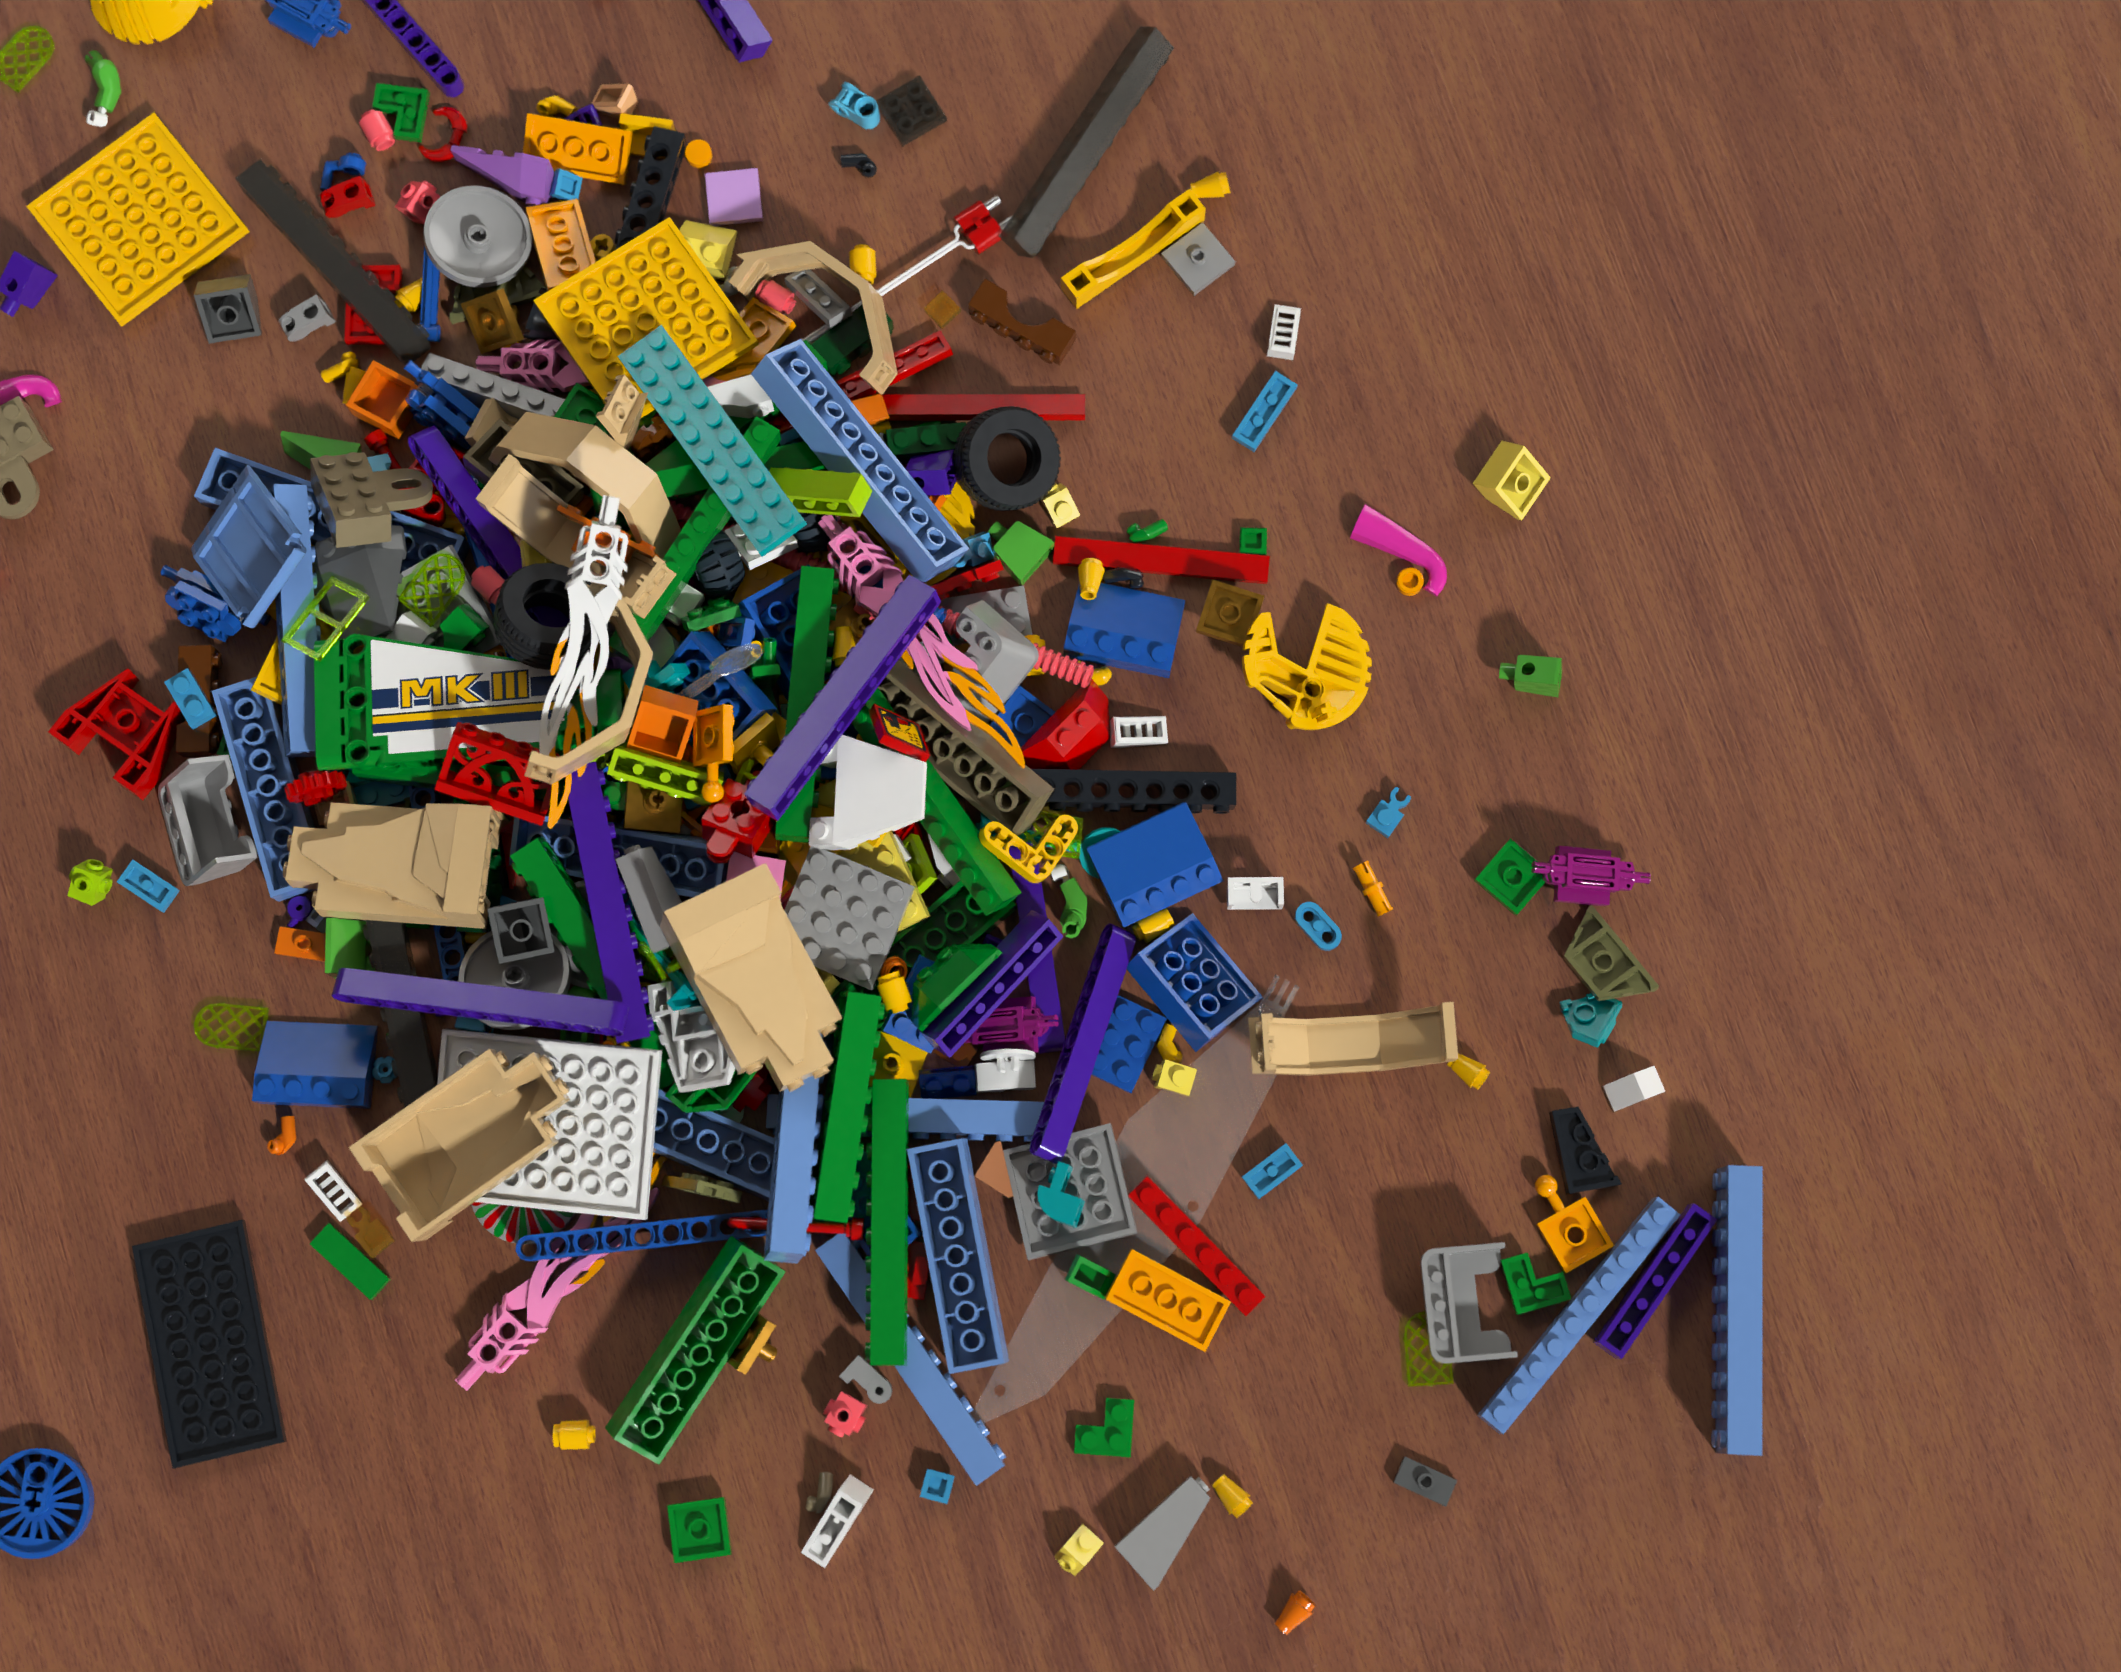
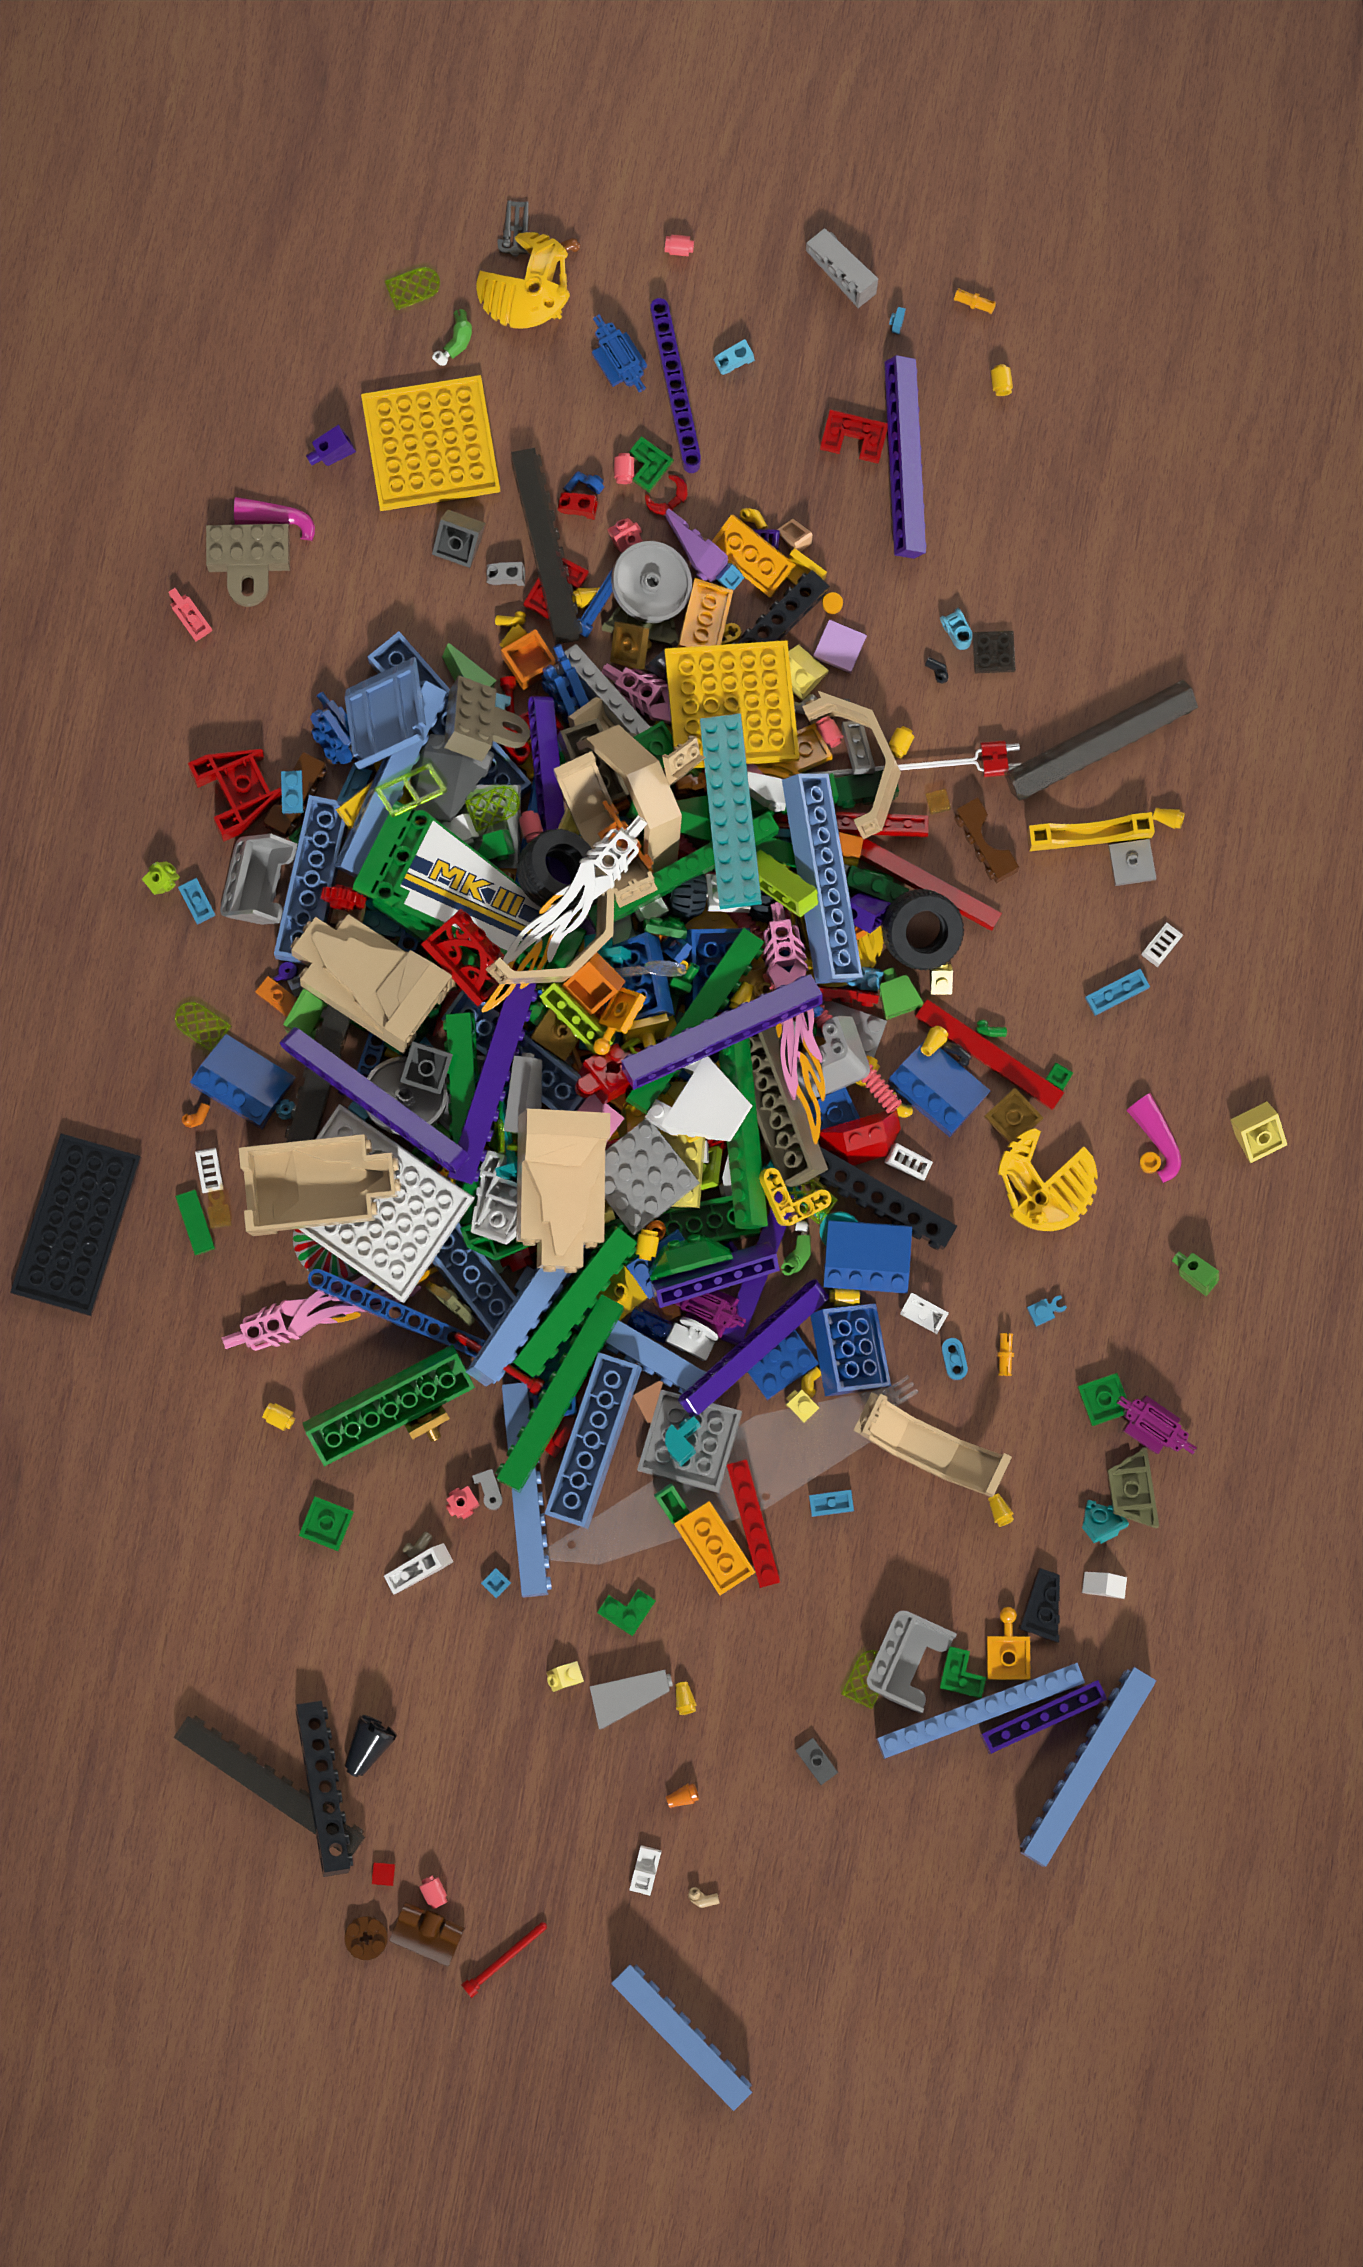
camera: 25 degrees right, 0 degrees up
(259, 644) = (356, 780): none -> dark azure plate
(899, 733) = (745, 1076): tile -> none

